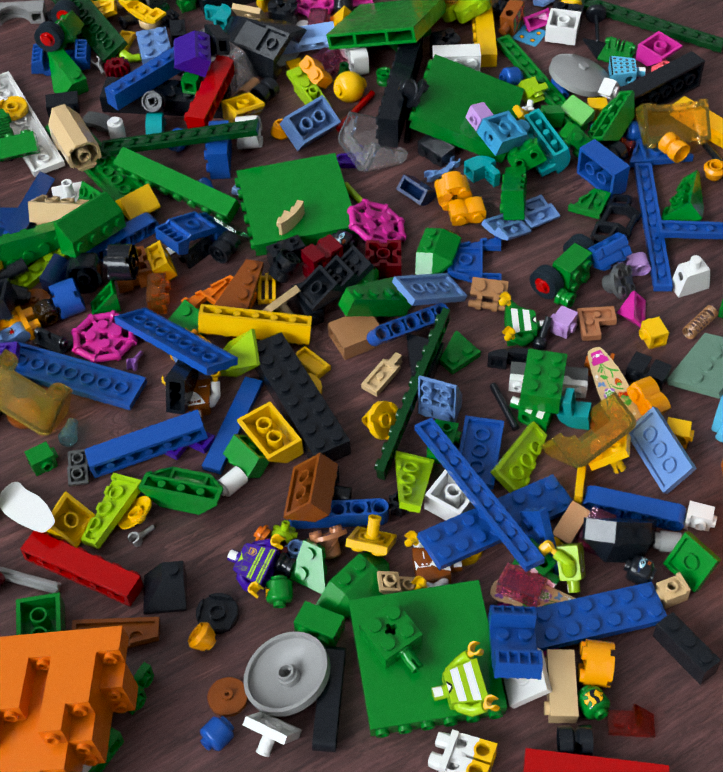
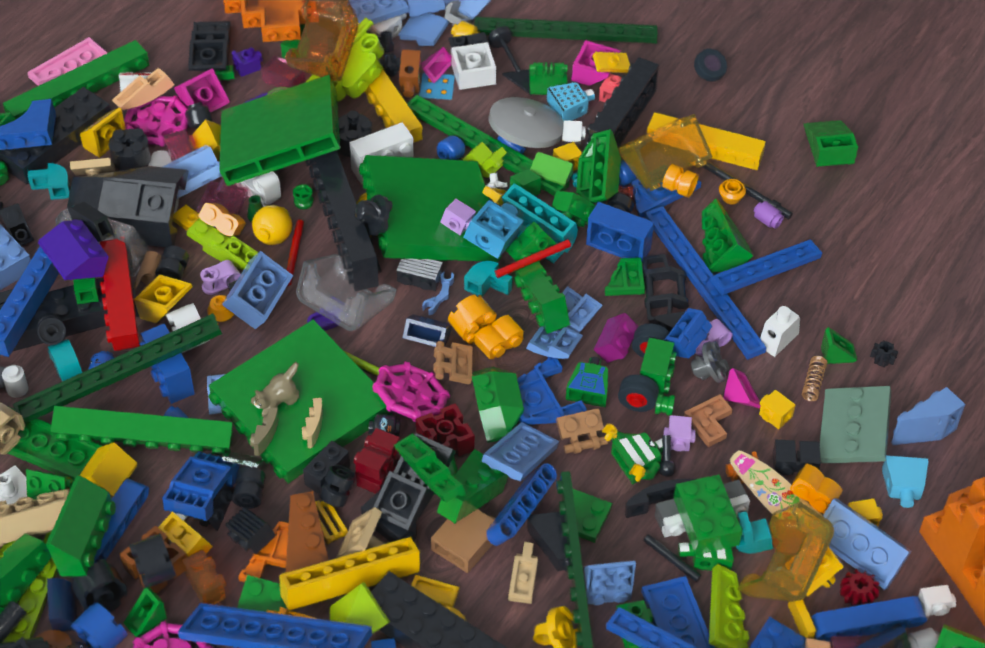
camera: 30 degrees left, 0 degrees up
(205, 273) = (249, 531): none -> black brick
(251, 214) = (265, 432): none -> dark tan slope
(278, 188) = (279, 390): none -> dark tan animal
(290, 106) = (219, 276): none -> lavender piece
(345, 269) = (429, 468): none -> green slope
(427, 218) = (459, 362): none -> medium nougat plate
(514, 264) = (589, 383): none -> green torso
(520, 164) = (532, 258): none -> red bar
(554, 240) = (616, 338): none -> magenta brick
(640, 482) = (859, 588): none -> dark red gear
(668, 49) = (611, 62): none -> yellow plate

